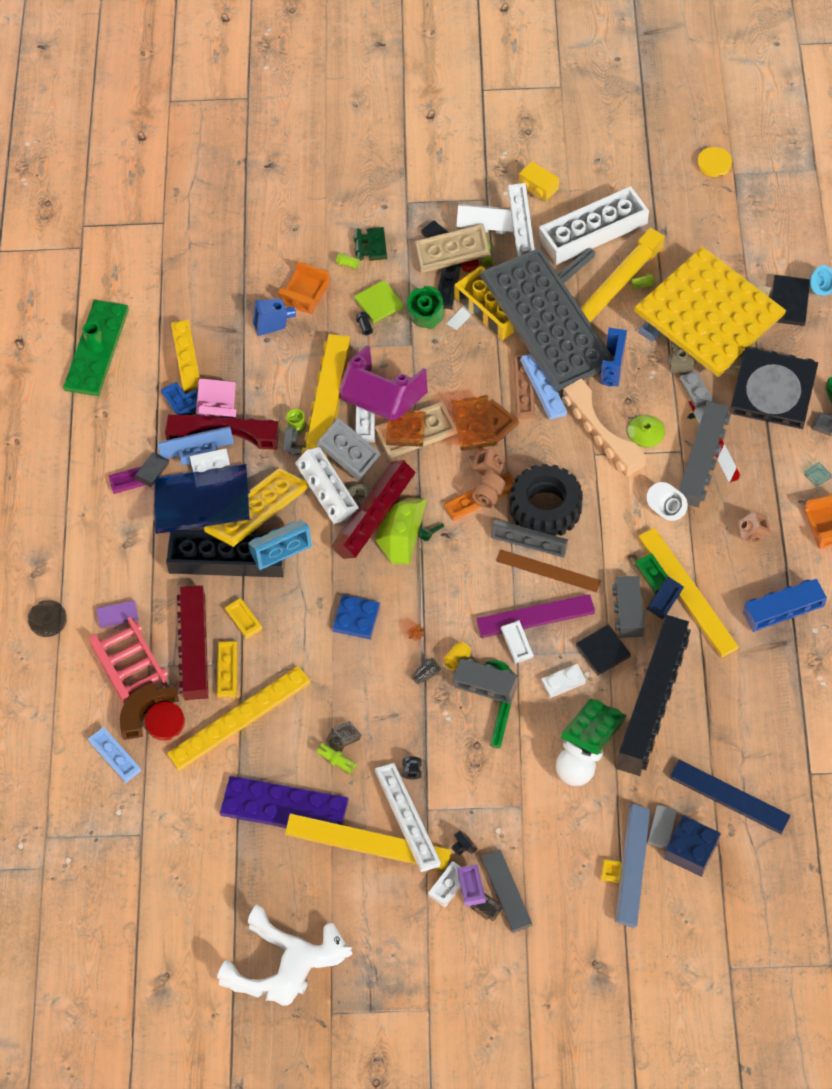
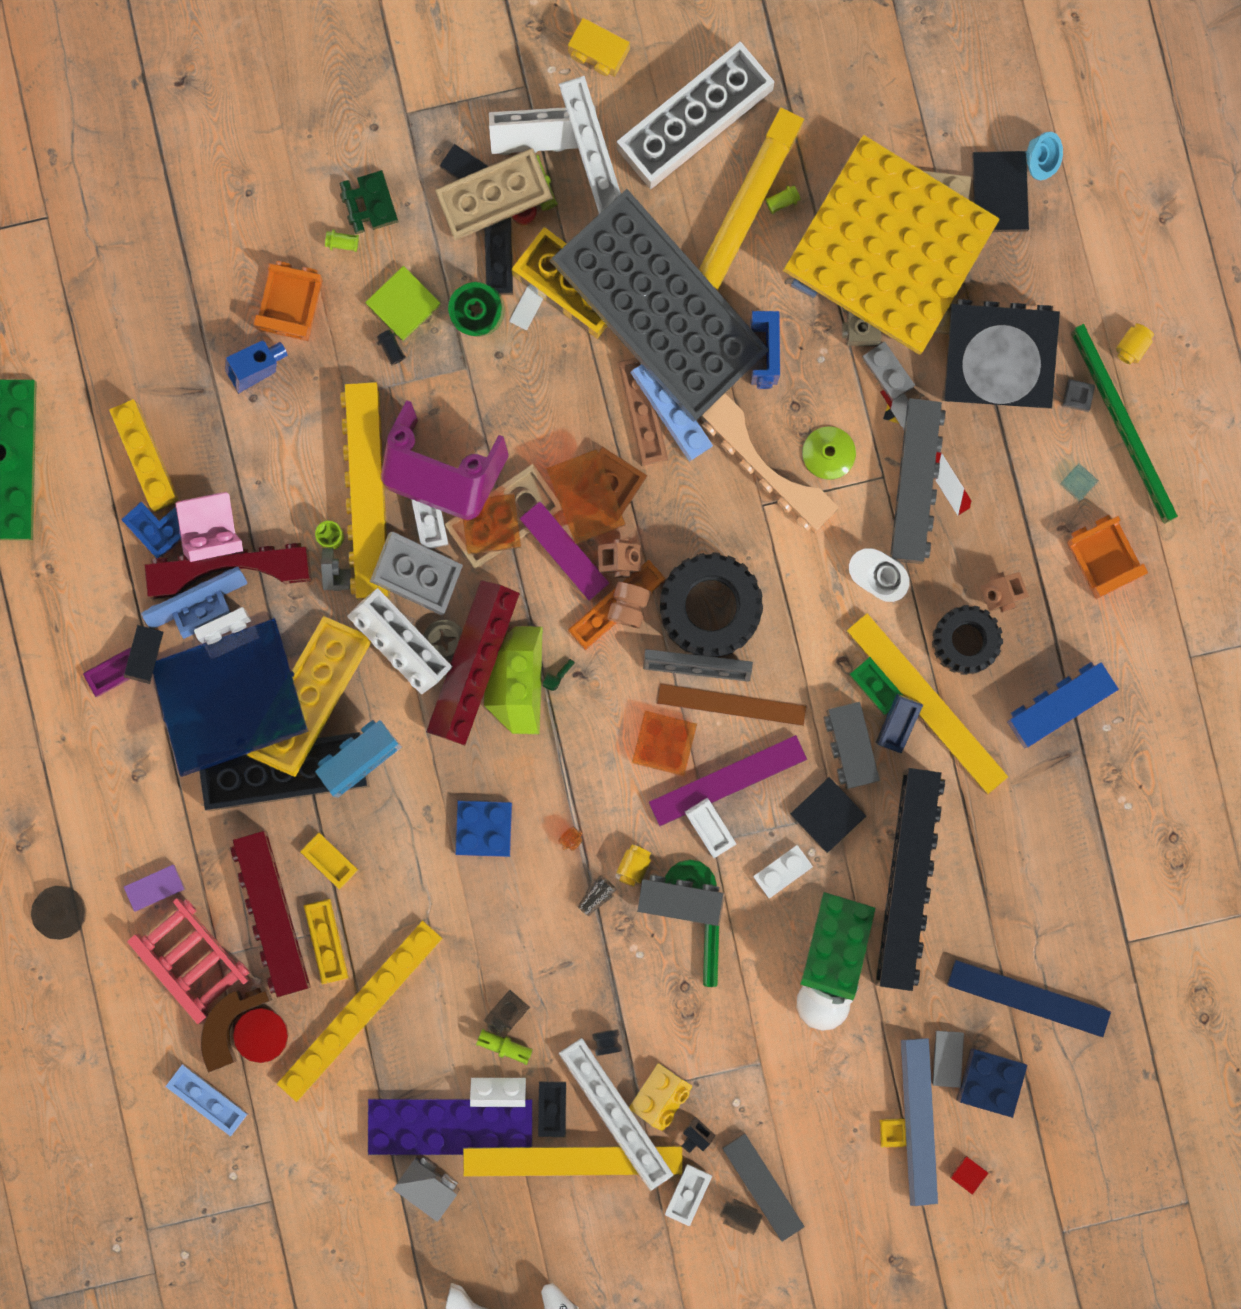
camera: 15 degrees left, 25 degrees up
(257, 840) = (427, 1188): none -> light grey slope
(326, 787) = (498, 1092): none -> white plate
(361, 806) = (552, 1109): none -> black plate
(443, 813) = (660, 1097): none -> yellow bracket
(452, 455) = (563, 550): none -> magenta tile
(471, 885) = (719, 1198): medium lavender tile -> none
(495, 583) = (664, 743): none -> clear orange plate
(576, 265) = (679, 189): dark grey axle -> none
(664, 911) = (969, 1175): none -> red tile
(722, 566) = (983, 623): none -> black tyre

